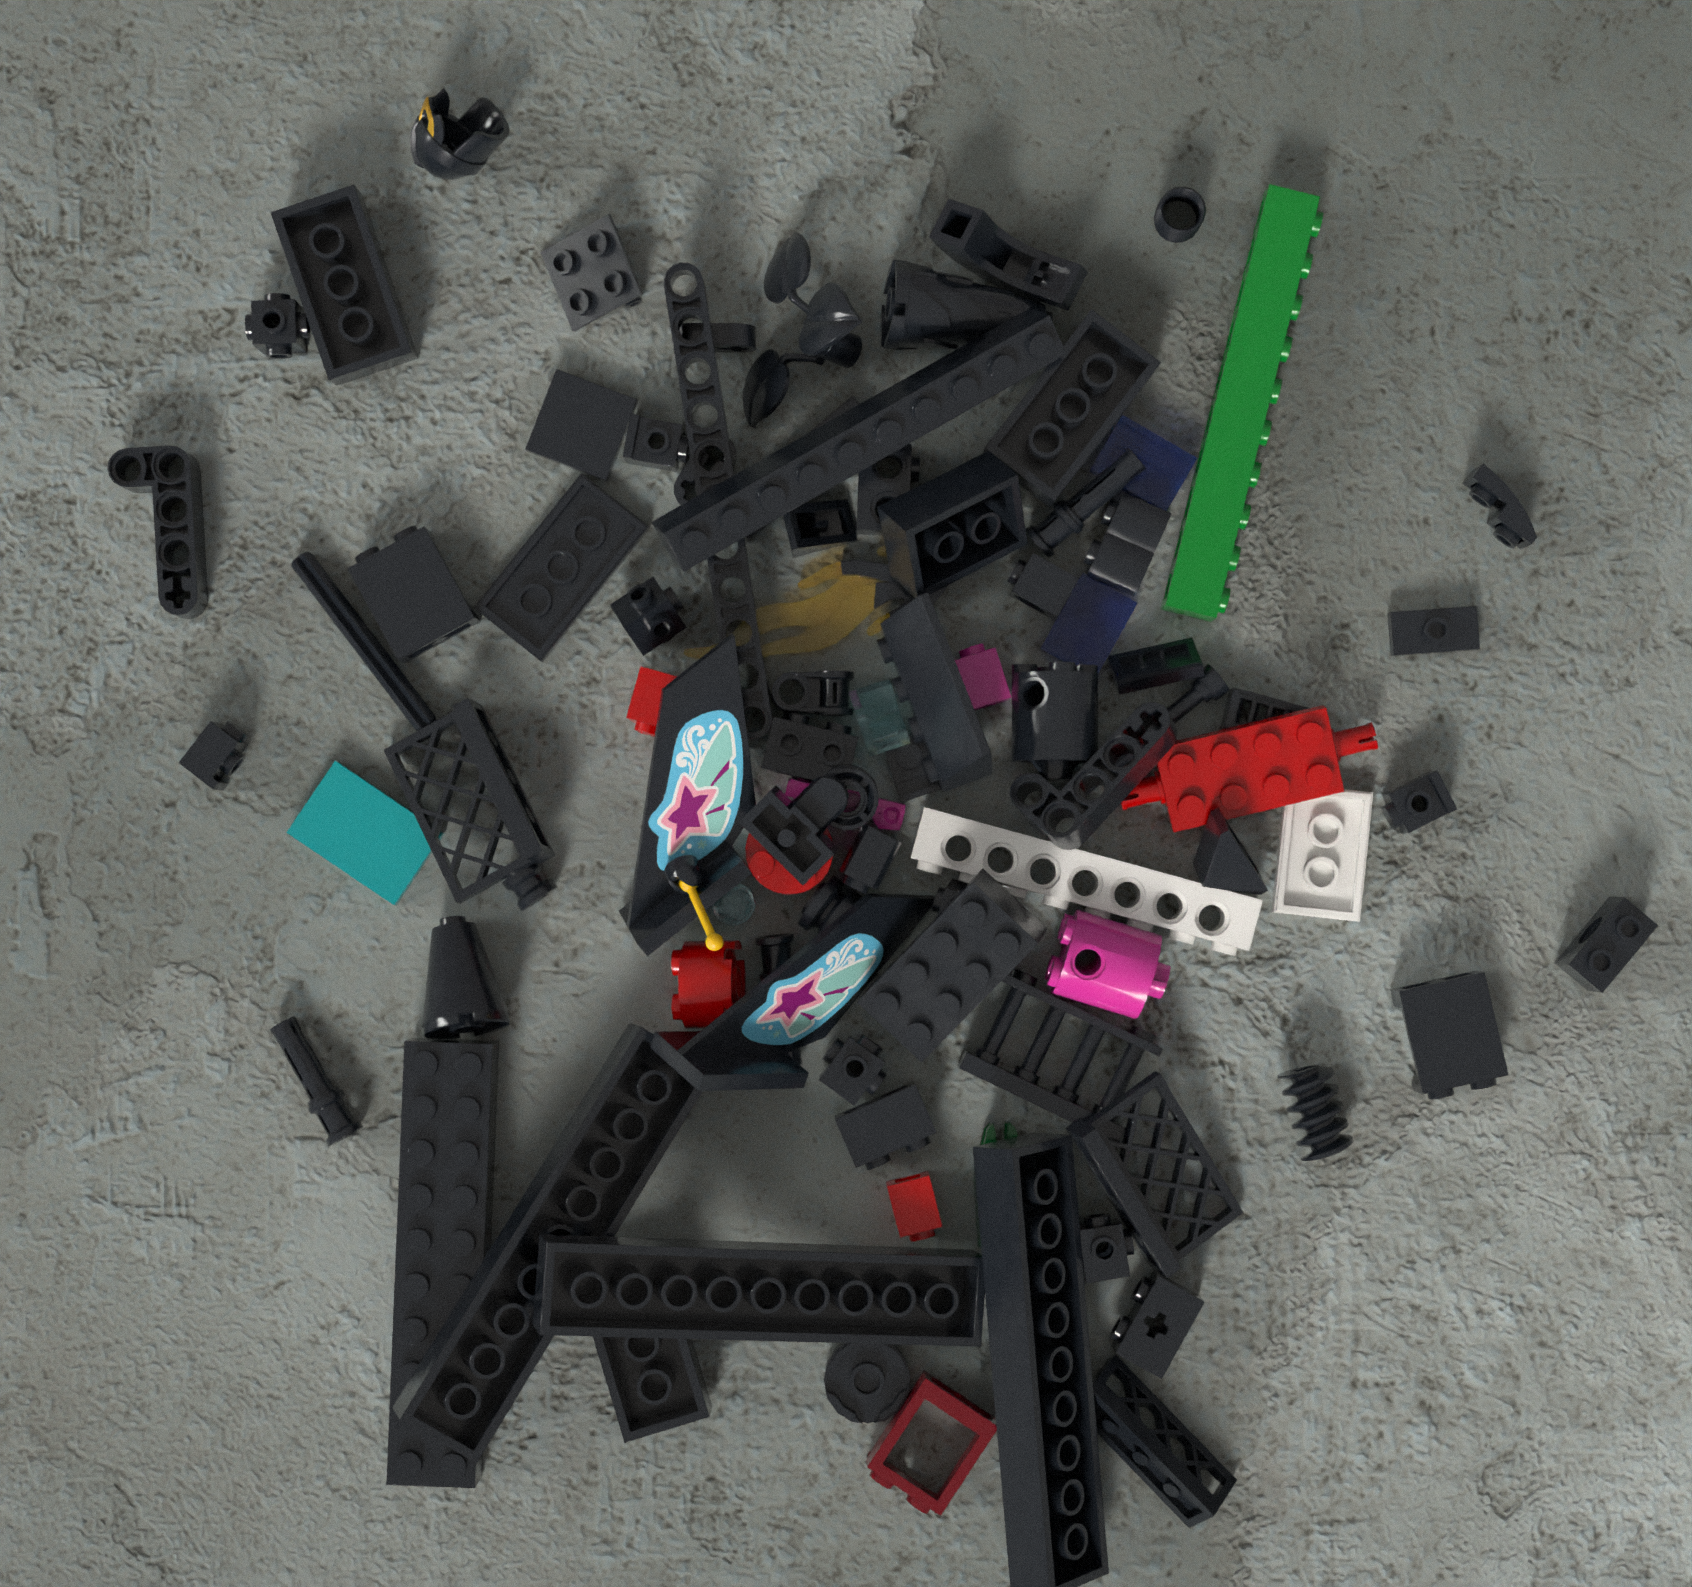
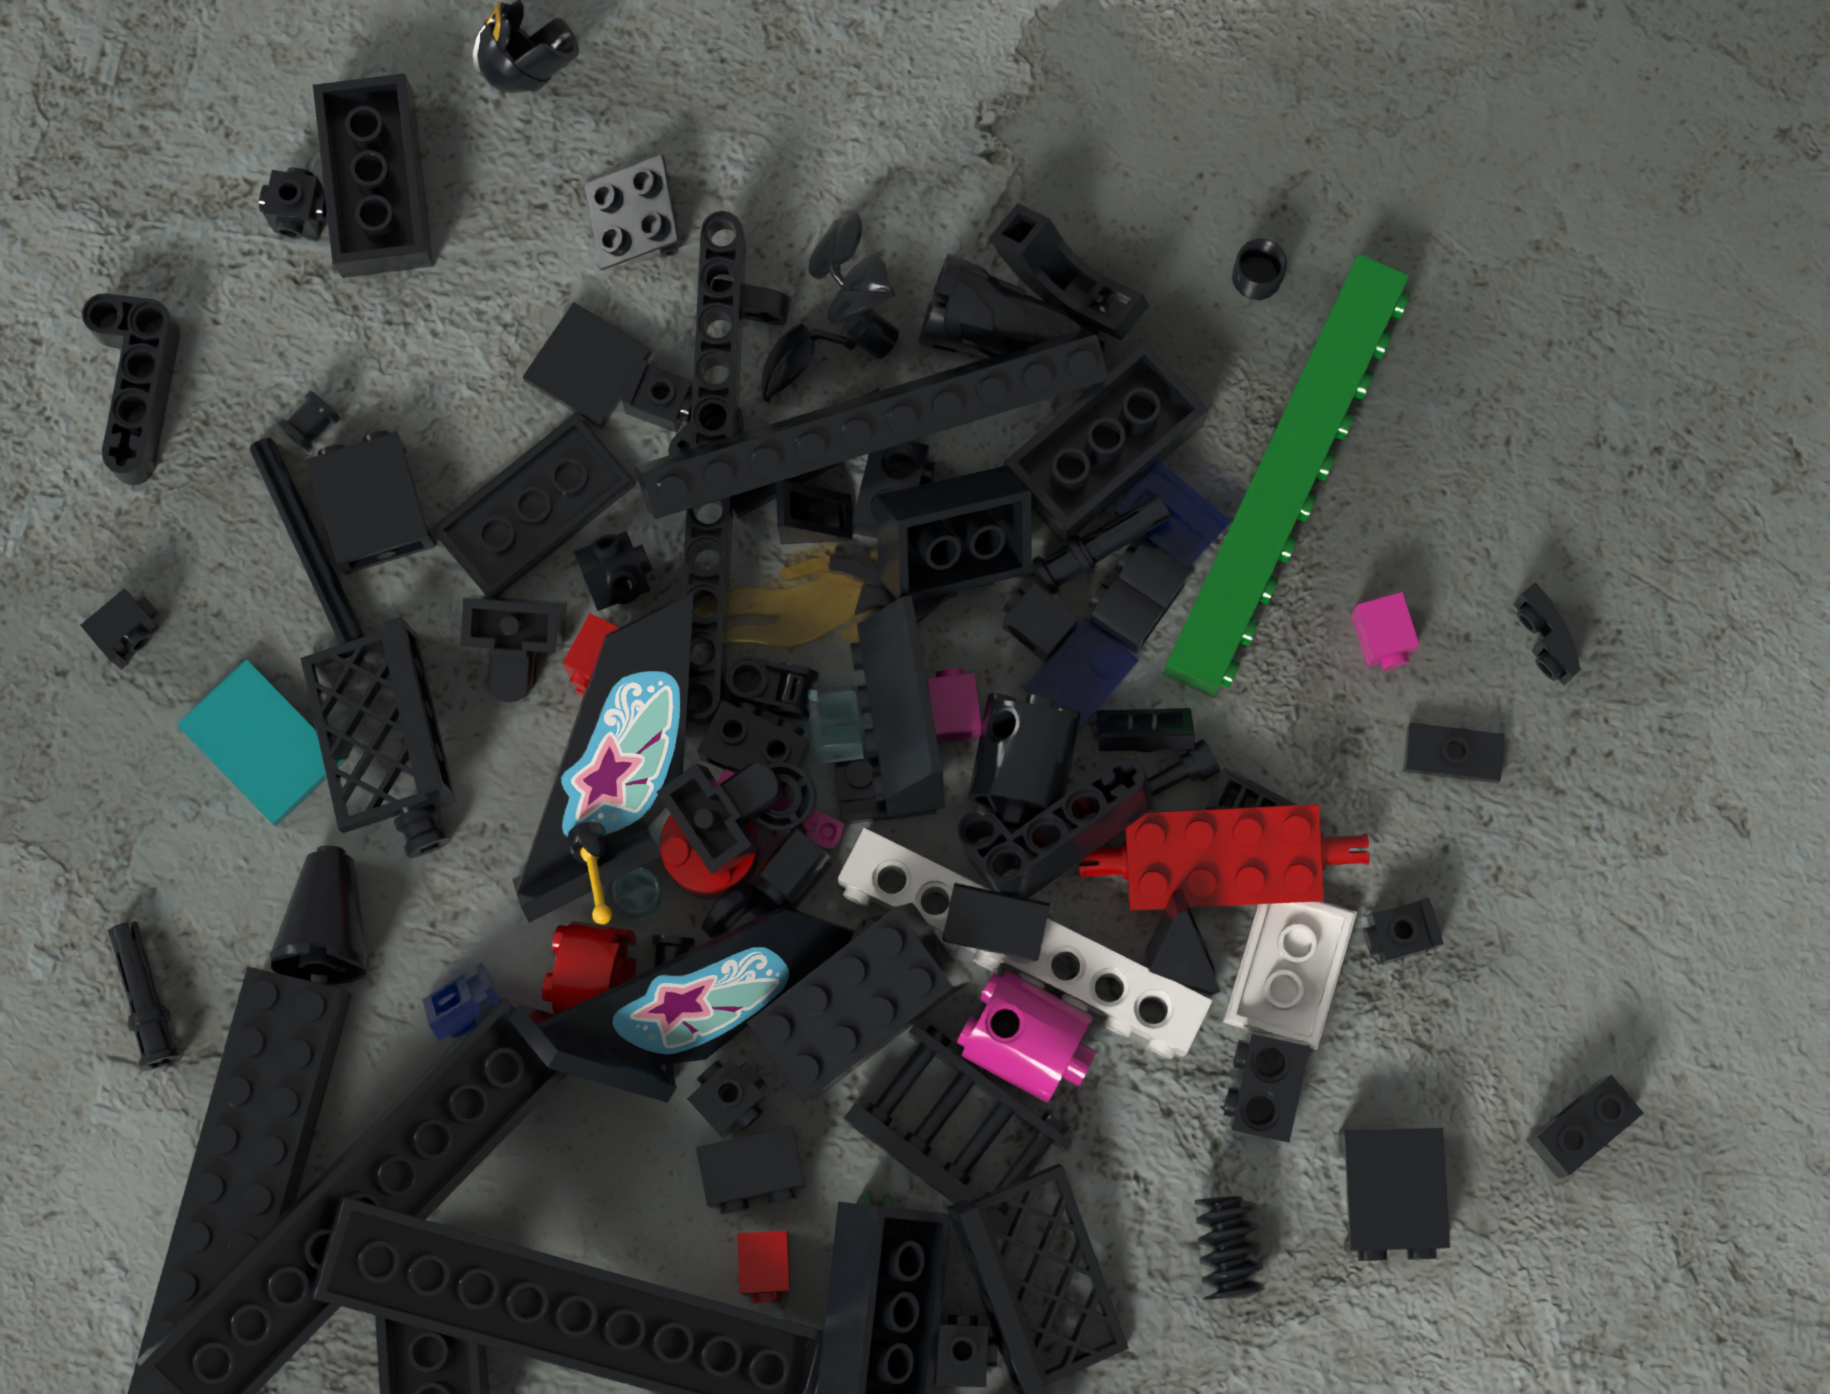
camera: 15 degrees right, 10 degrees down
(339, 529) = (309, 421): none -> black bush
(572, 691) = (514, 634): none -> black brick
(598, 1034) = (458, 1003): none -> clear blue plate
(1060, 872) = (995, 922): none -> black slope
(1333, 962) = (1280, 1086): none -> black brick
(1355, 534) = (1385, 631): none -> dark pink brick

